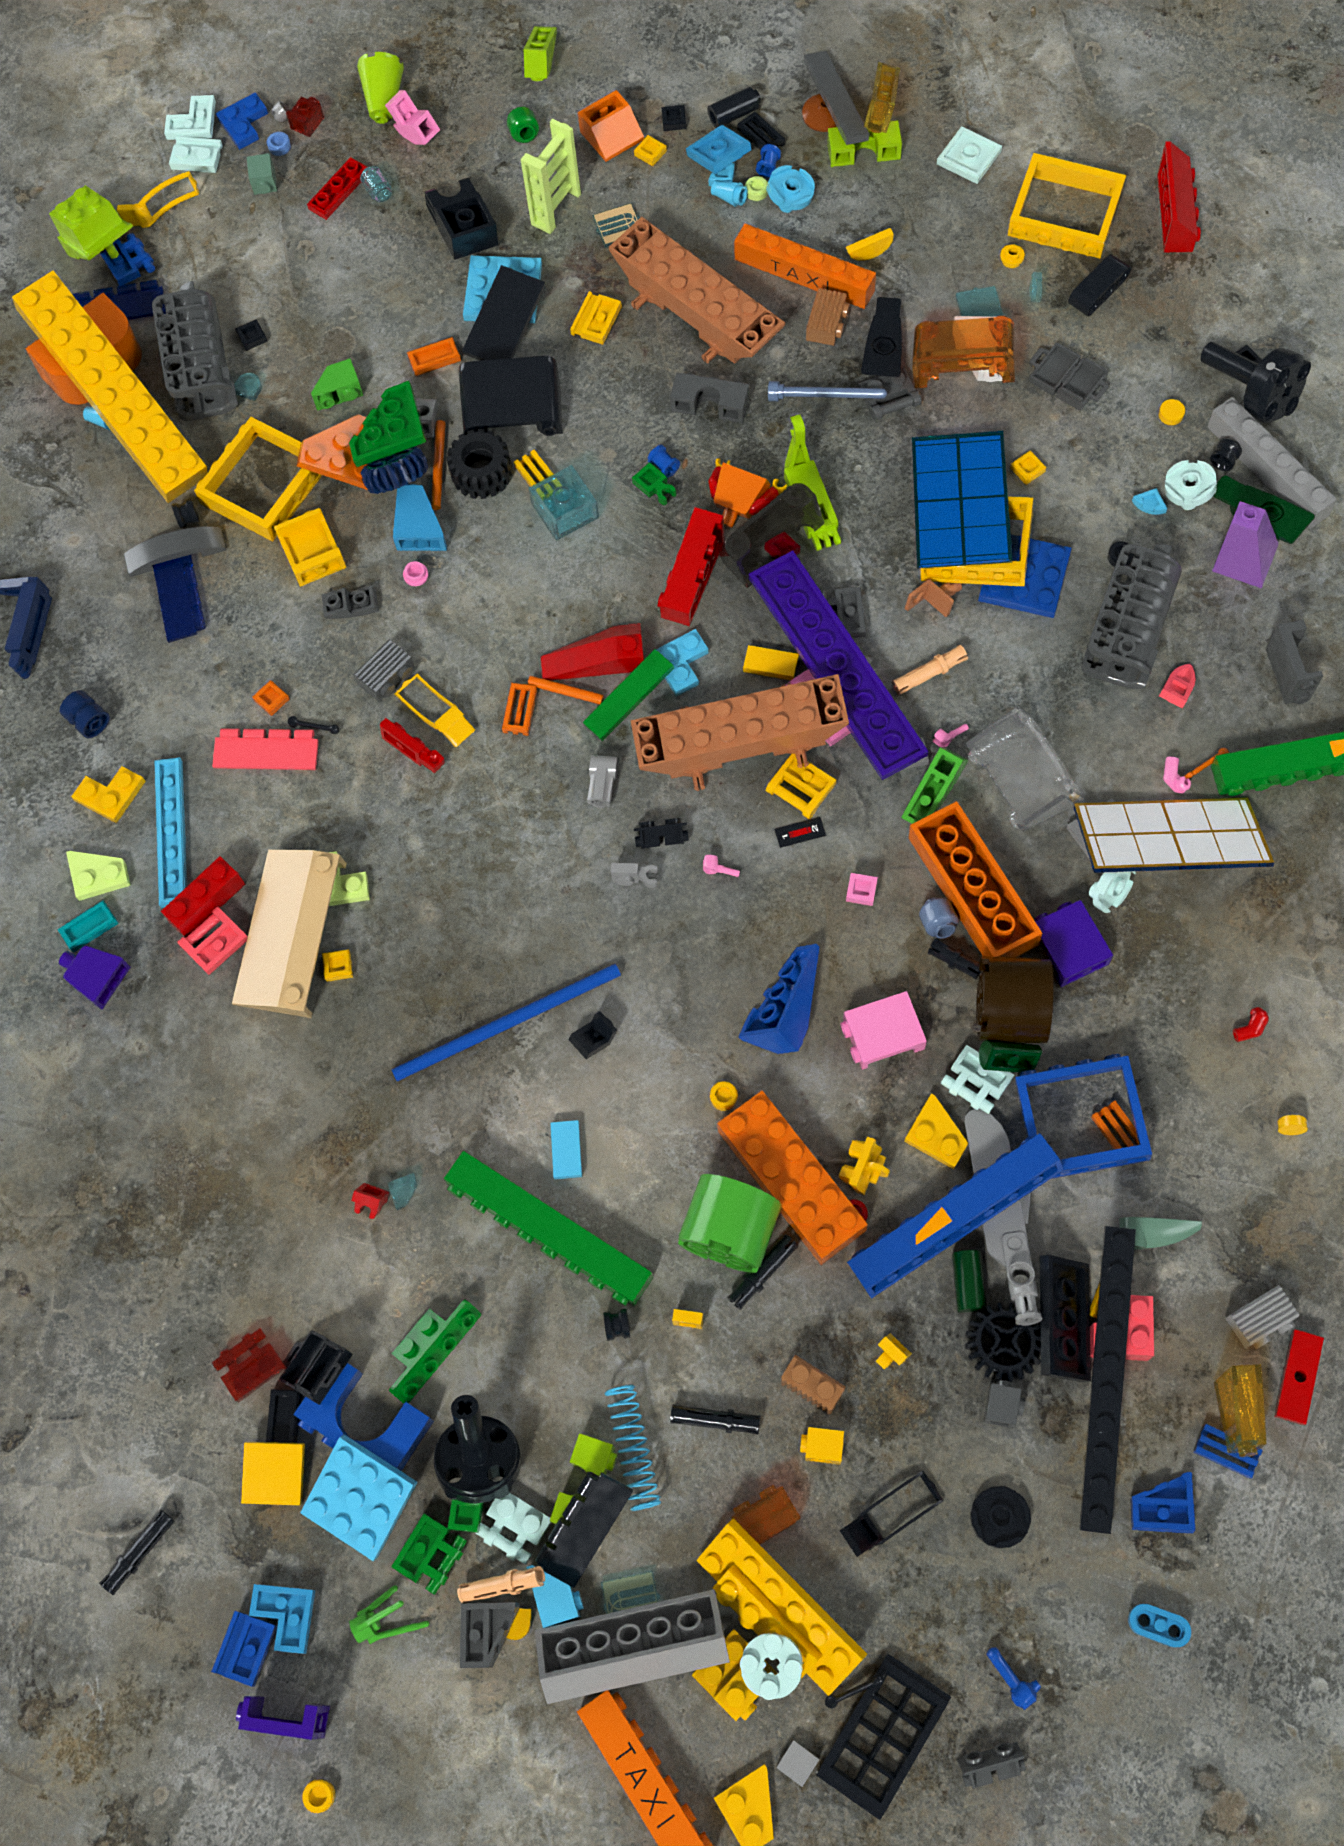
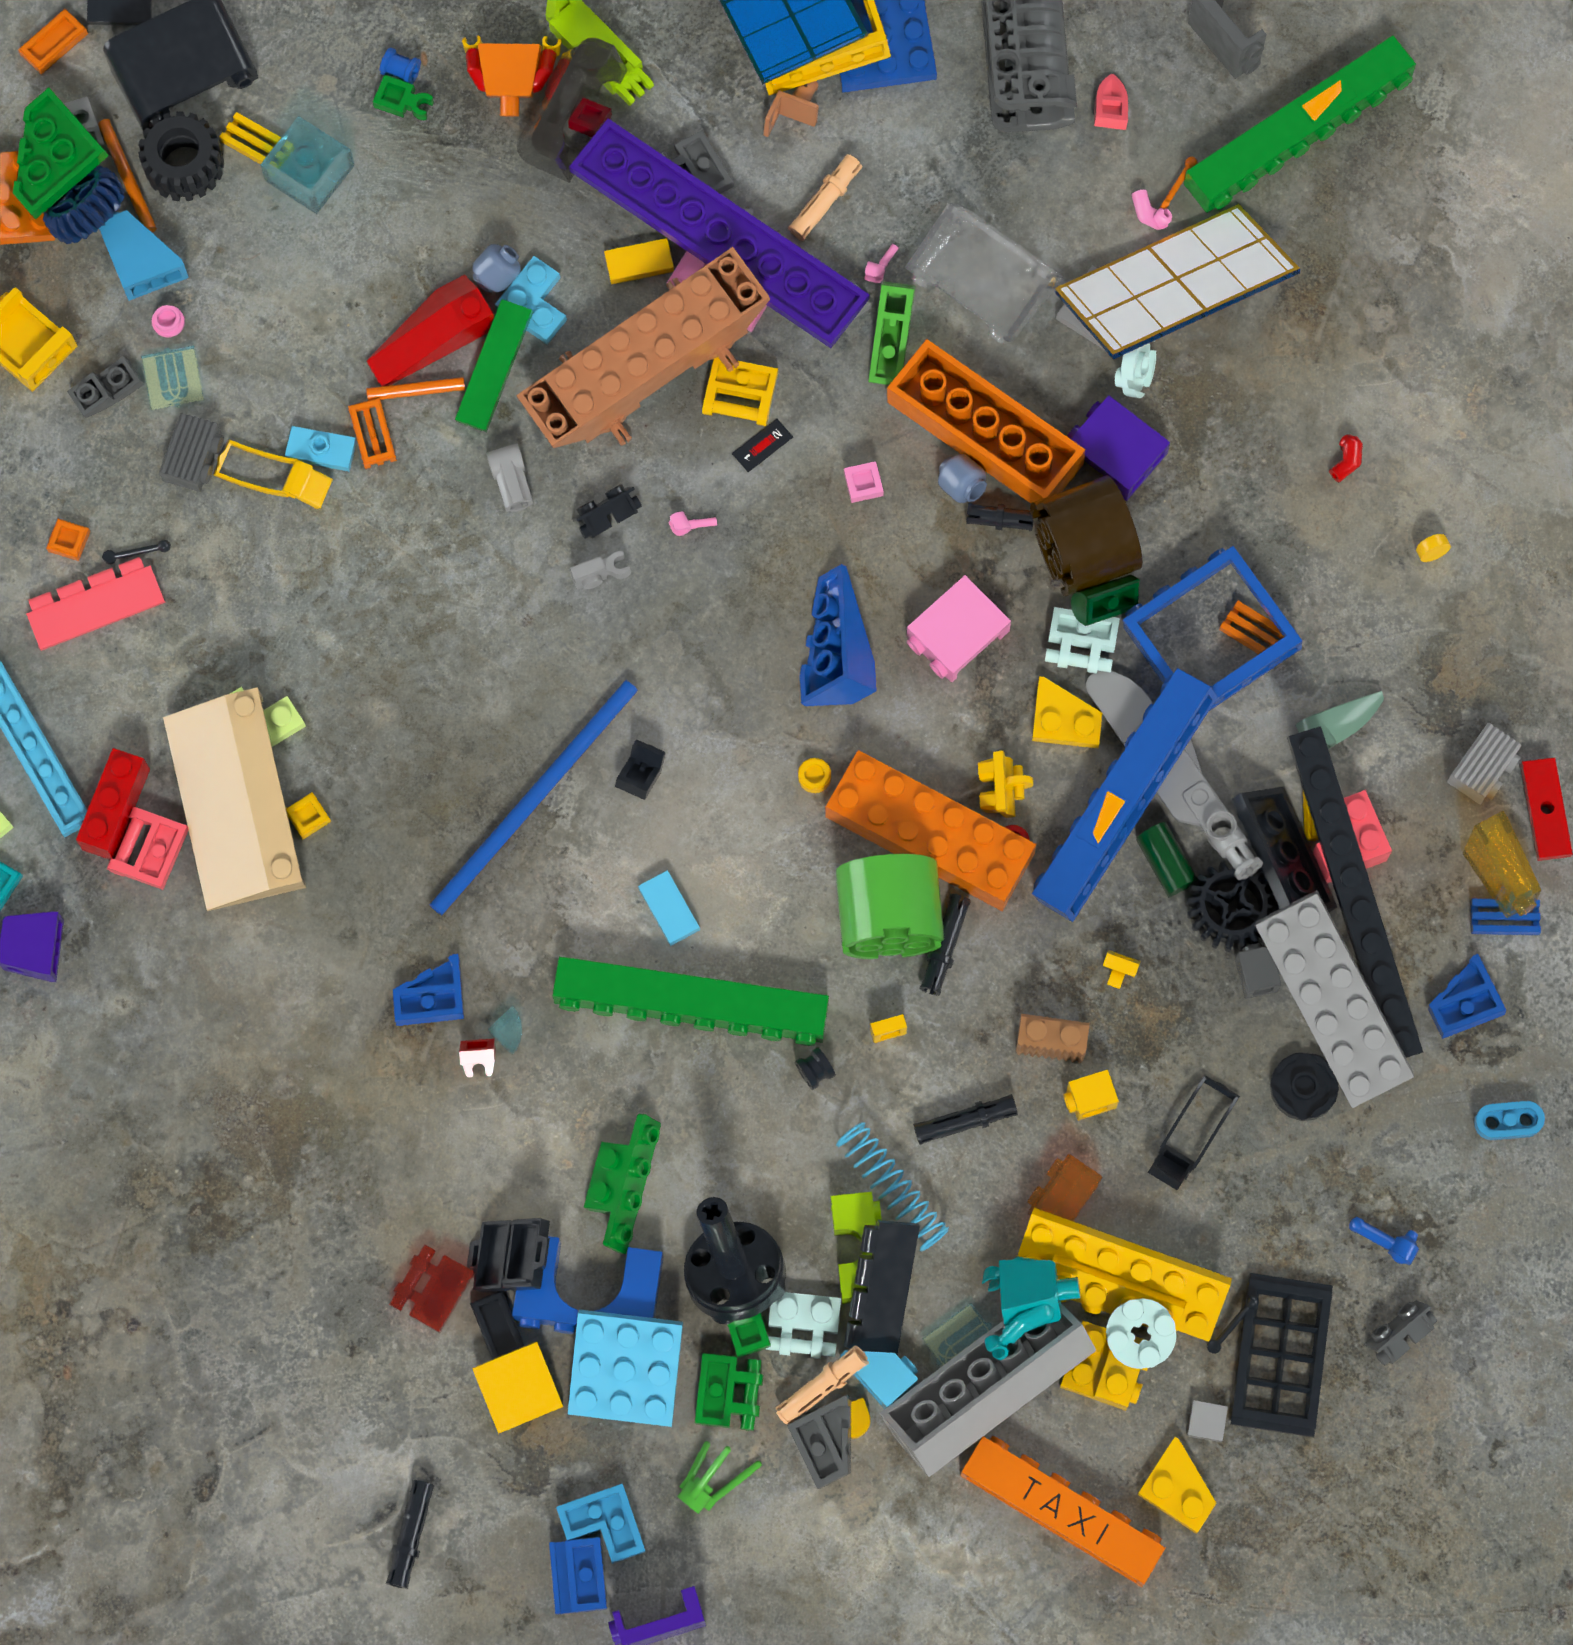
camera: 30 degrees left, 5 degrees up
(358, 1139) = (431, 996): none -> blue wing
(399, 614) = (172, 377): none -> clear light blue piece
(411, 746) = (267, 529): red hinge -> none
(478, 705) = (321, 448): none -> medium azure plate
(663, 626) = (496, 268): none -> sand blue head
(692, 567) = (496, 180): red wedge -> none
(692, 1592) = (1028, 1298): none -> teal torso
(1053, 1459) = (1334, 999): none -> light grey brick

